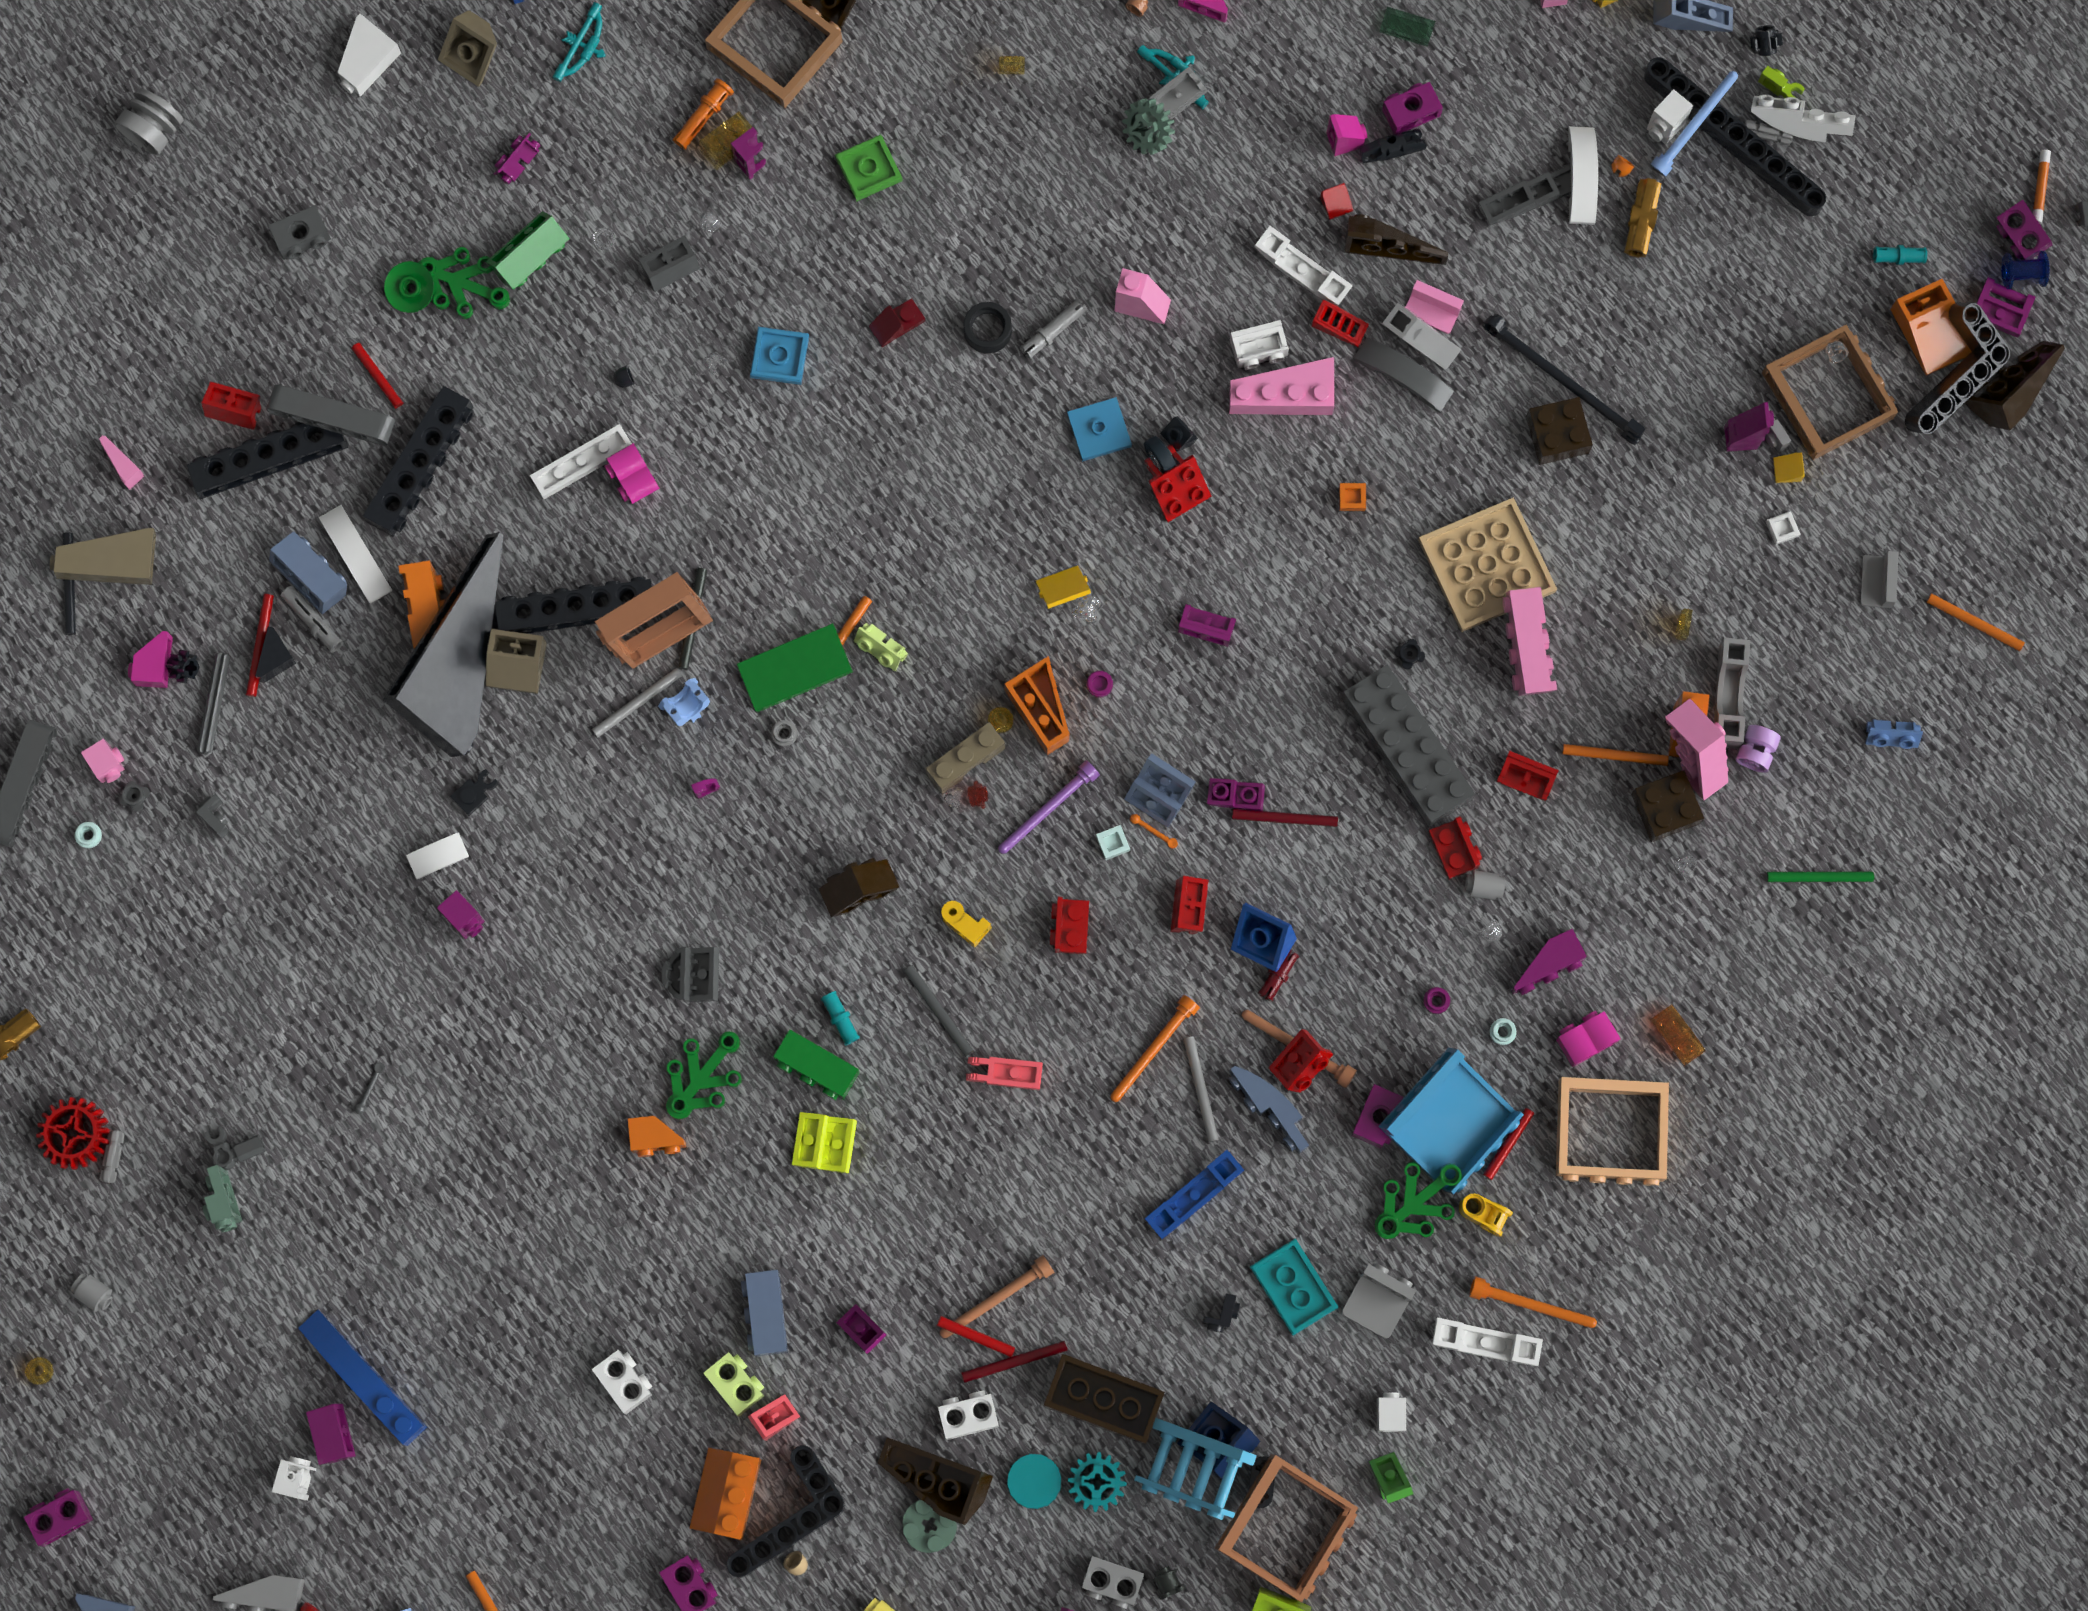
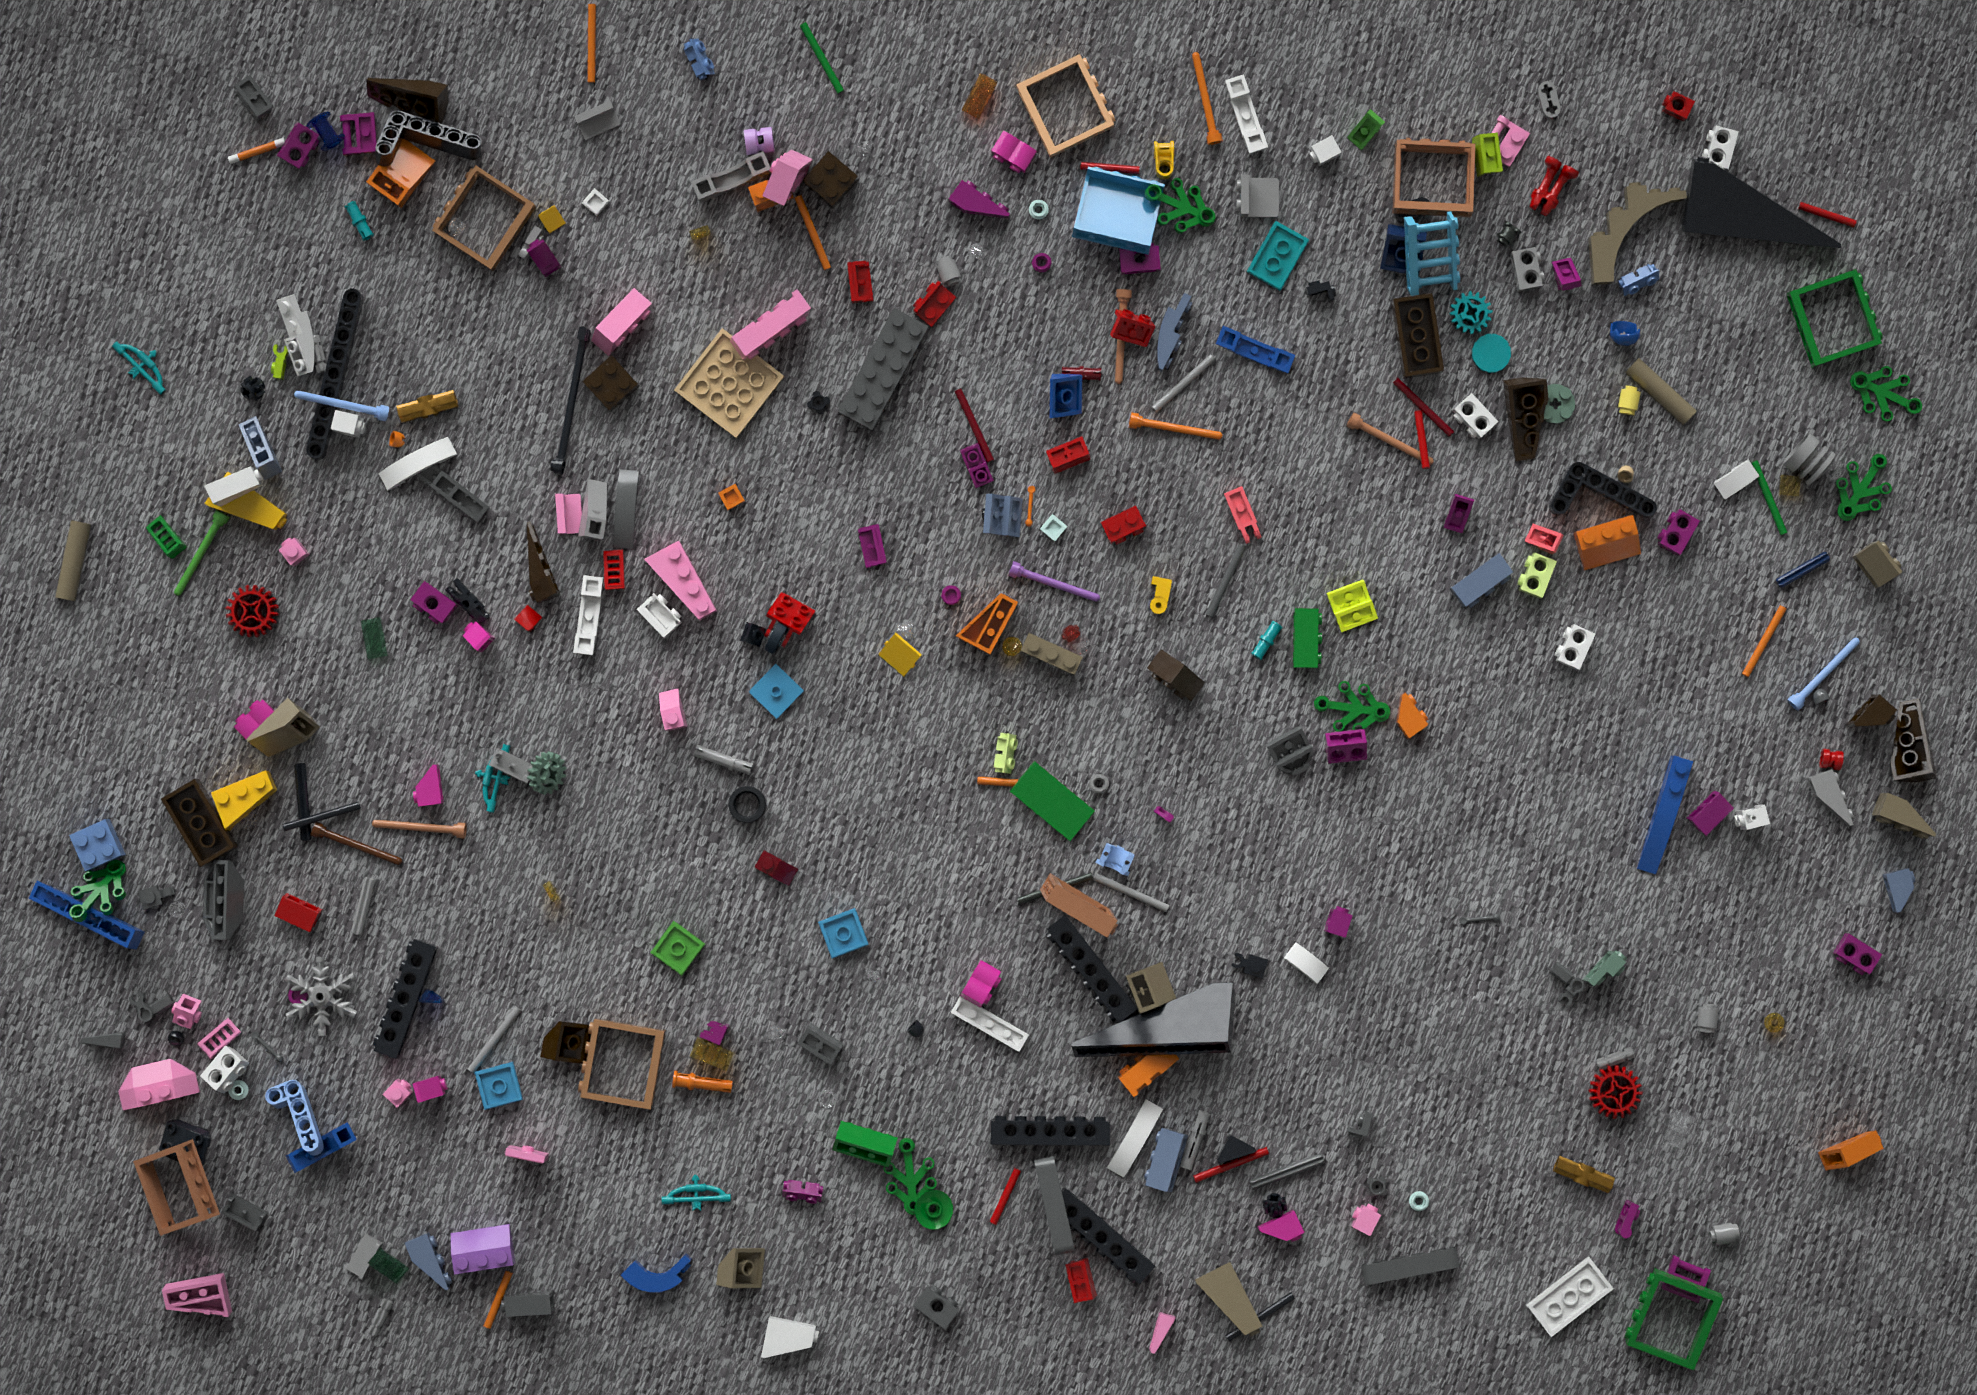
camera: 120 degrees left, 10 degrees up
(661, 1040) = (1346, 746): none -> magenta brick
(1626, 480) = (621, 321): none -> bright pink wedge

